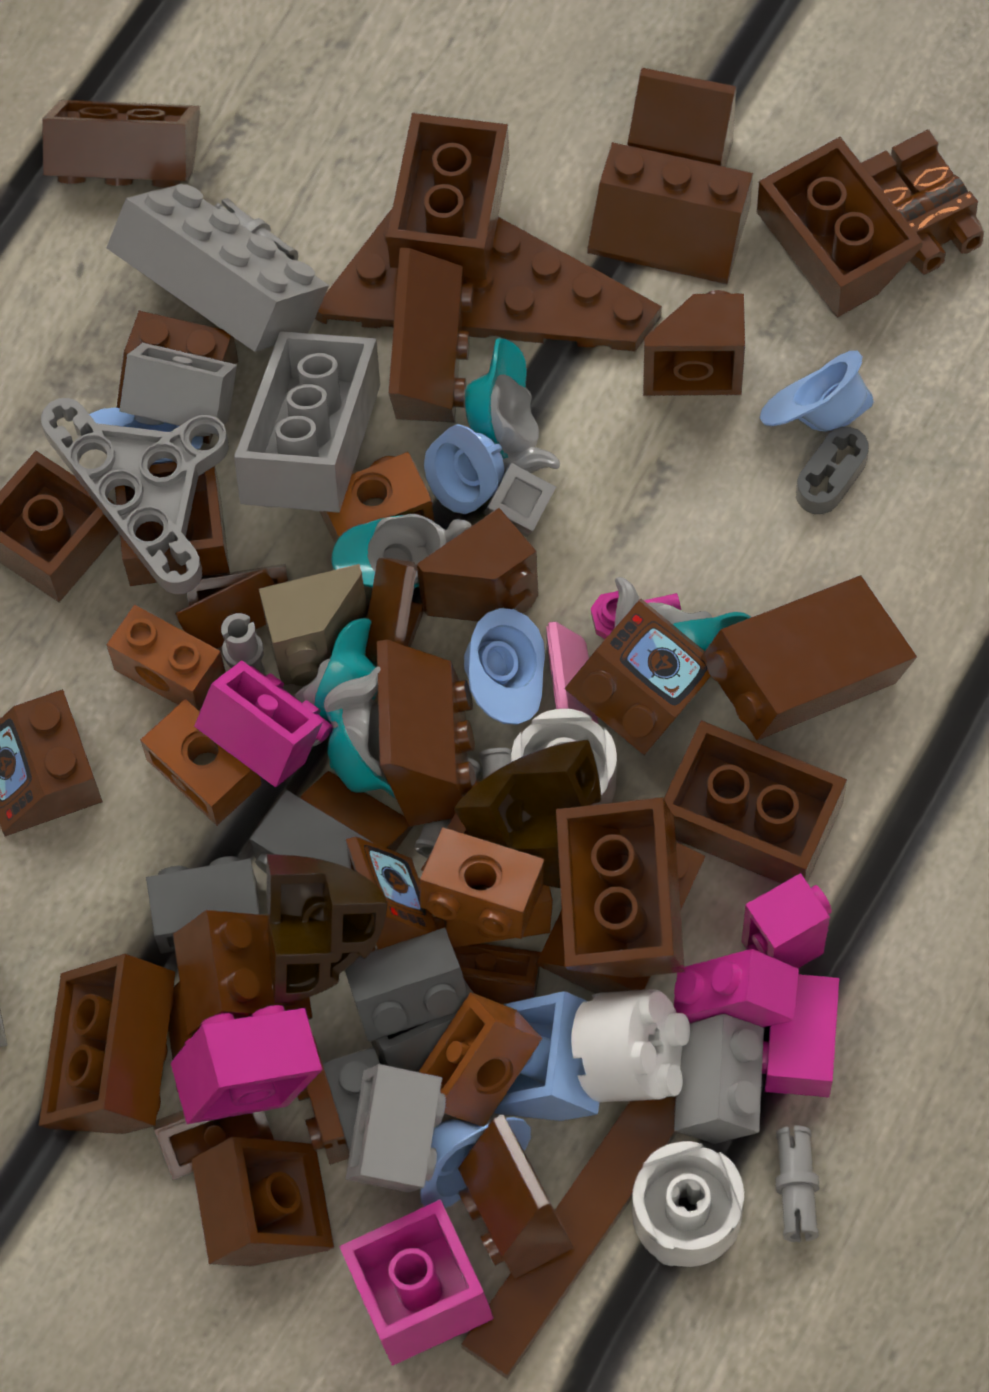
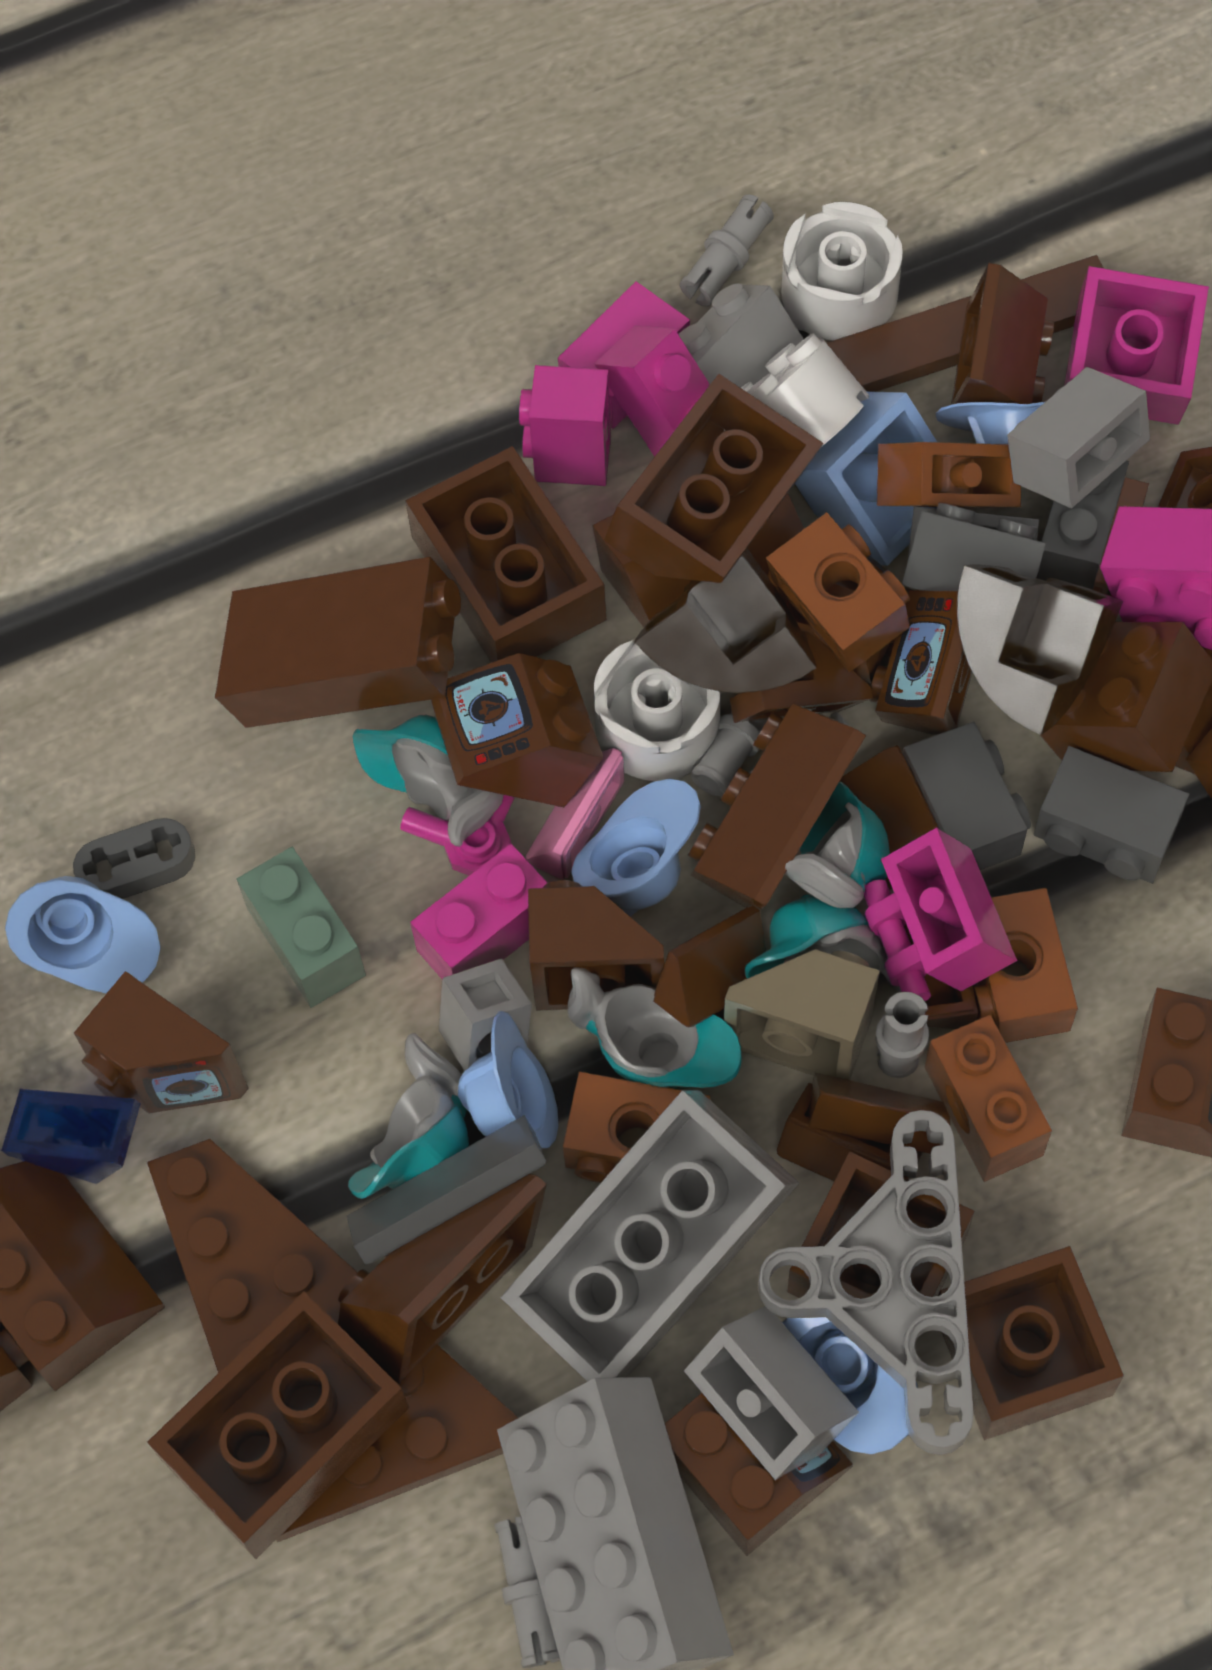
camera: 145 degrees left, 0 degrees up
(452, 369) = (445, 1190): none -> dark grey tile
(571, 565) = (479, 917): none -> dark pink brick
(683, 486) = (301, 927): none -> sand green brick
(723, 269) = (71, 1132): none -> clear blue slope

